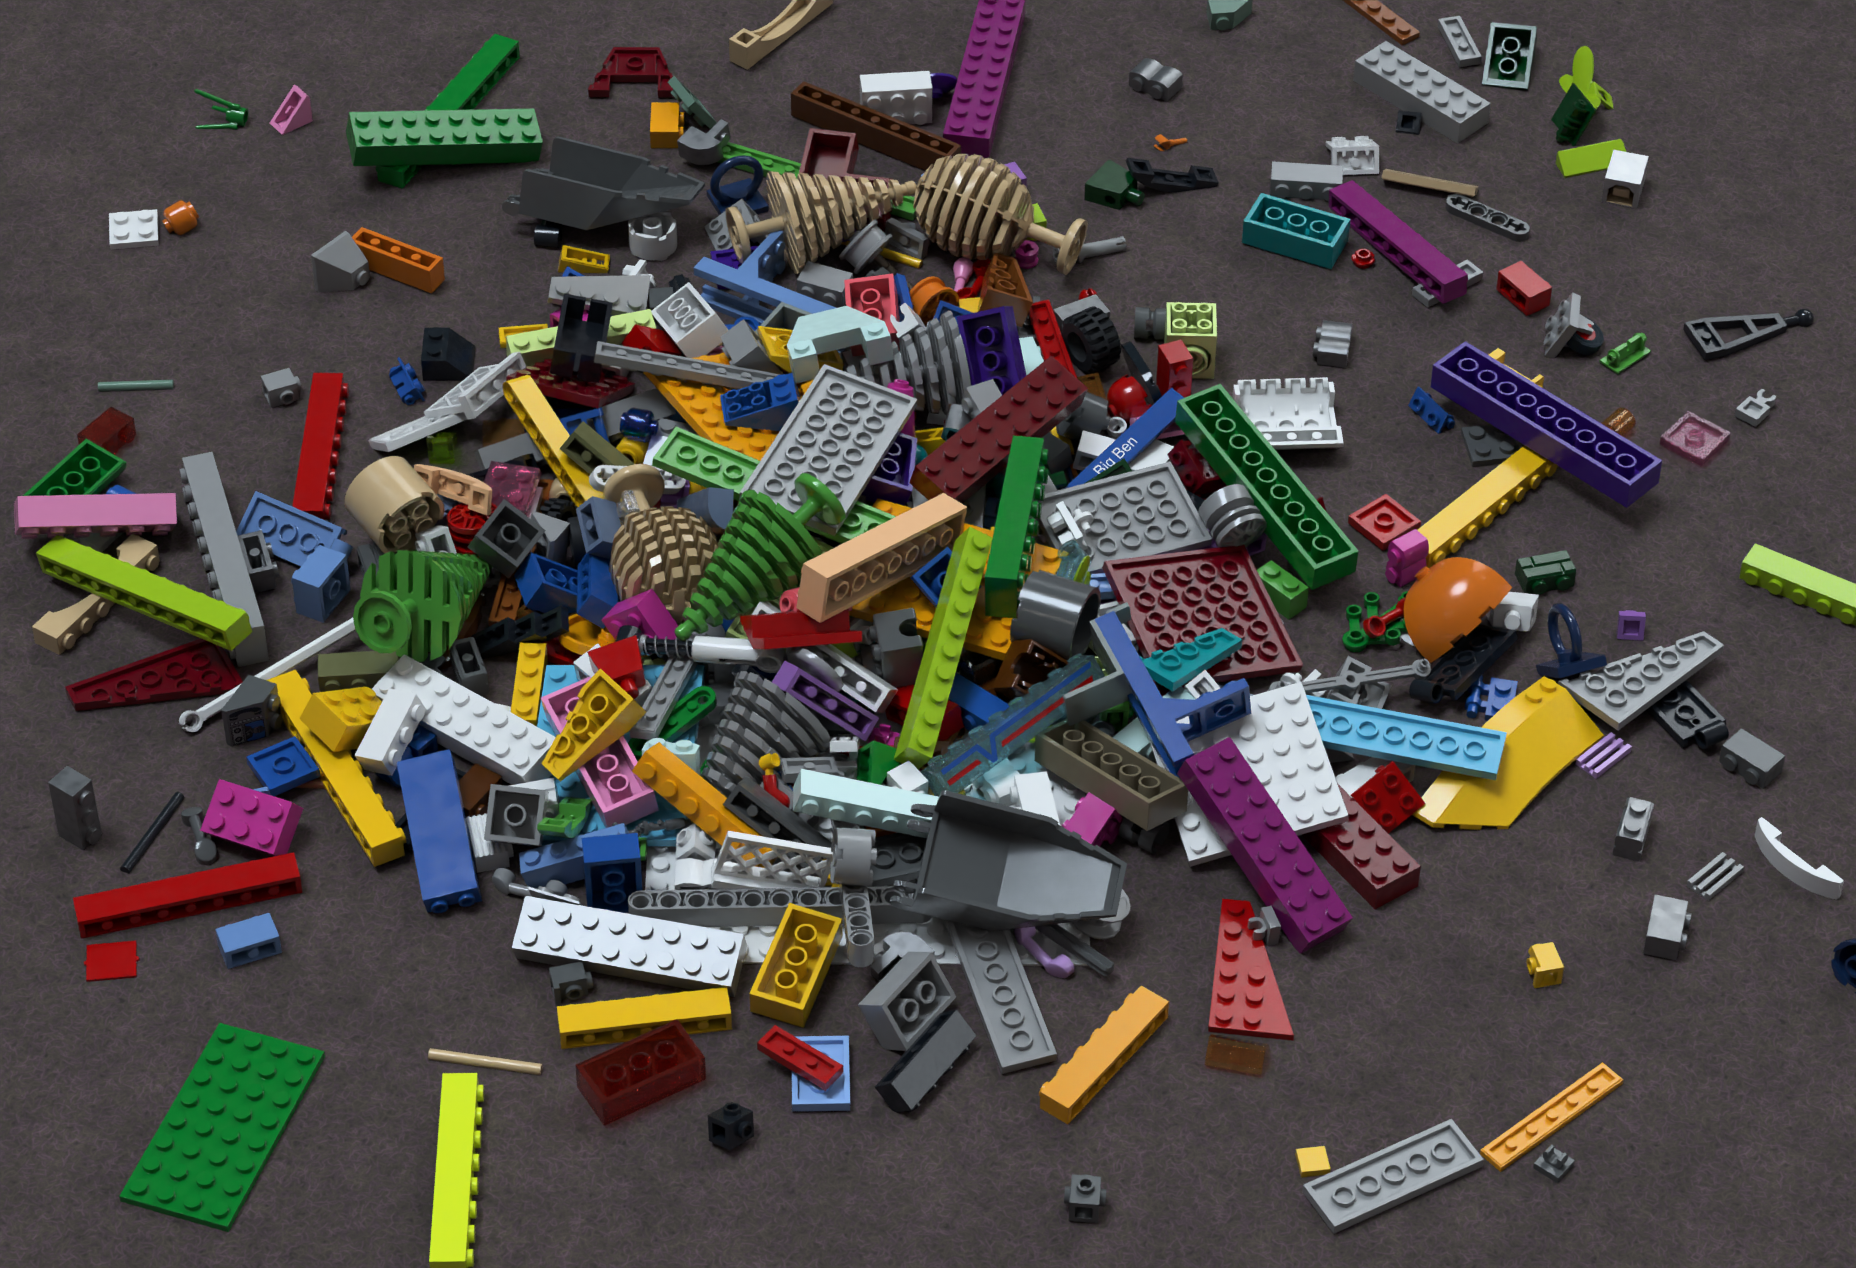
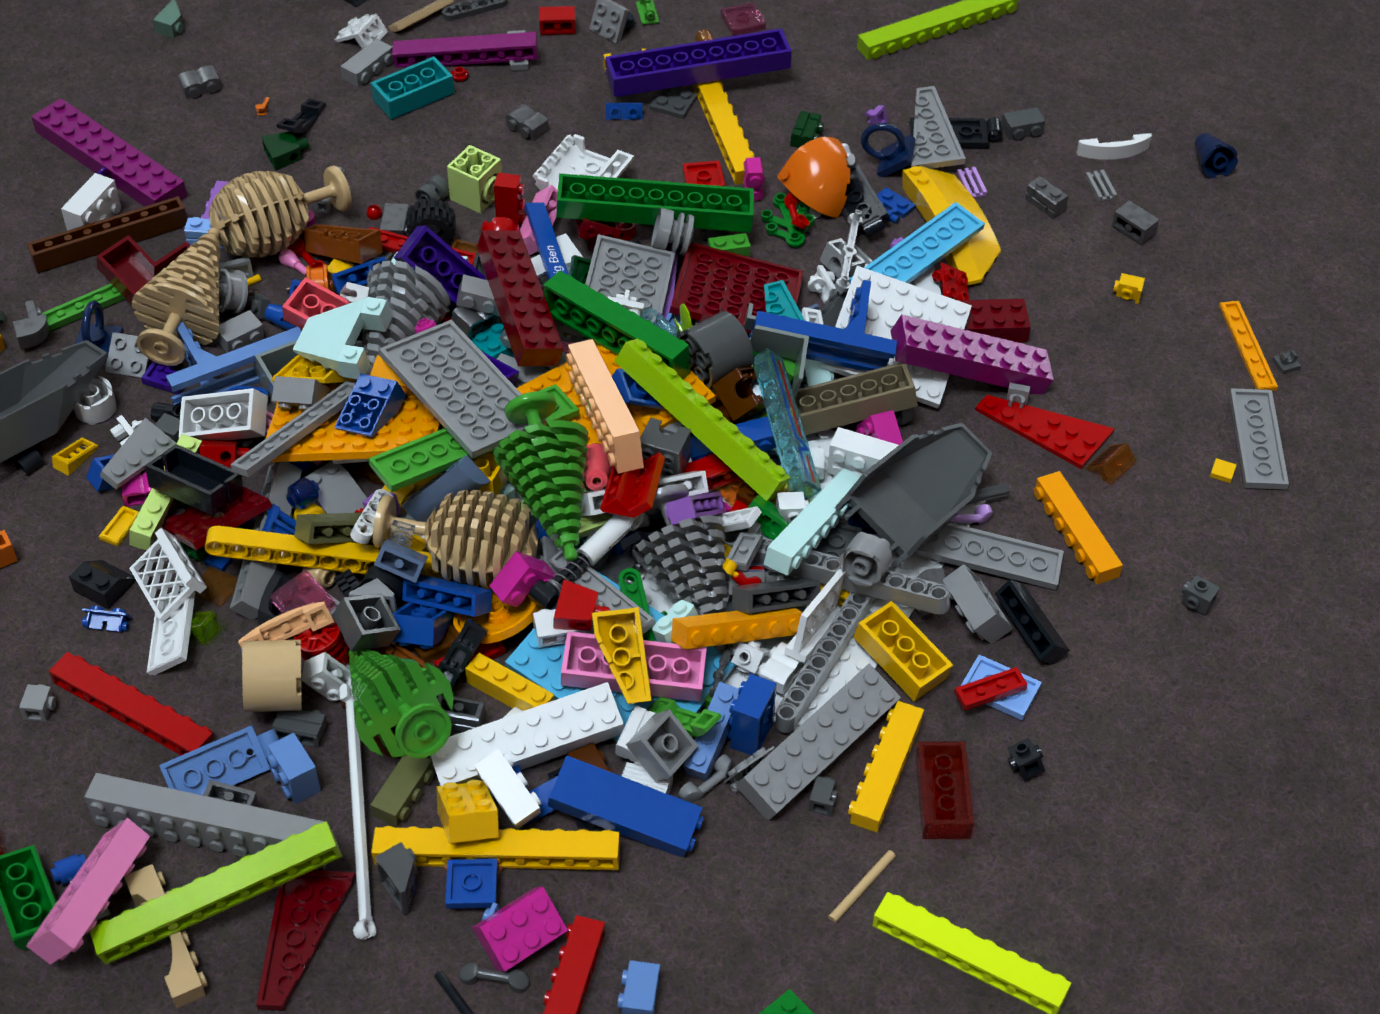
camera: 60 degrees left, 5 degrees up
(1140, 372) = (474, 214): black tile -> none

